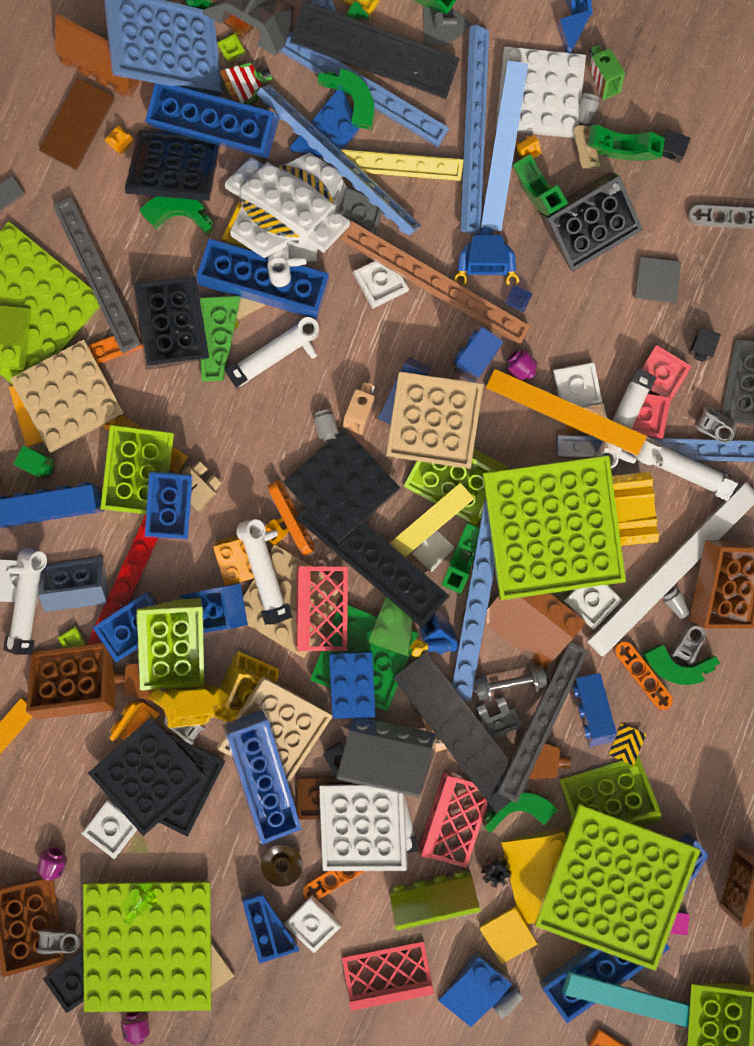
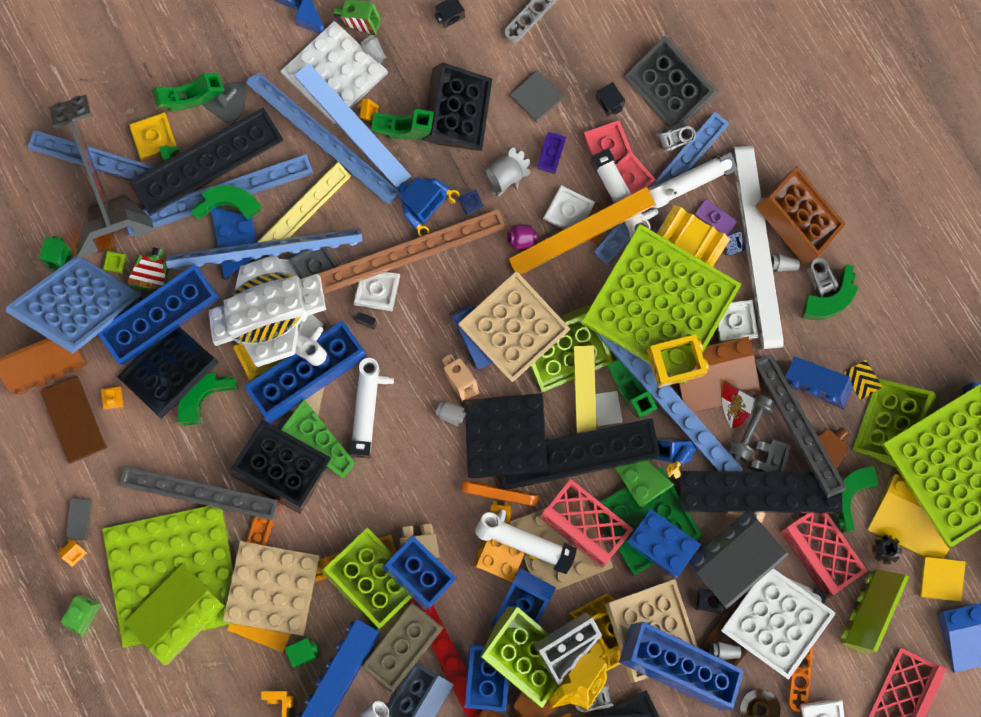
camera: 55 degrees left, 10 degrees down
(104, 538) = (402, 647): none -> dark tan tile
(202, 672) = (567, 645): none -> light grey wedge
(304, 800) = (724, 651): none -> light grey cone
(346, 290) = (366, 320): none -> black tile
(480, 351) = (490, 260): blue brick -> none
(496, 565) = (659, 368): none -> yellow window
(520, 656) = (736, 404): none -> shield
(570, 308) = (507, 171): none -> light grey piece
(587, 156) = (401, 70): tan plate -> none
(616, 331) = (551, 152): none -> dark purple plate
(626, 146) = (424, 42): green arch -> none
(645, 673) = (819, 325): orange beam -> none
(661, 548) = (735, 243): none -> clear blue plate
(670, 514) = (715, 217): none -> medium lavender plate

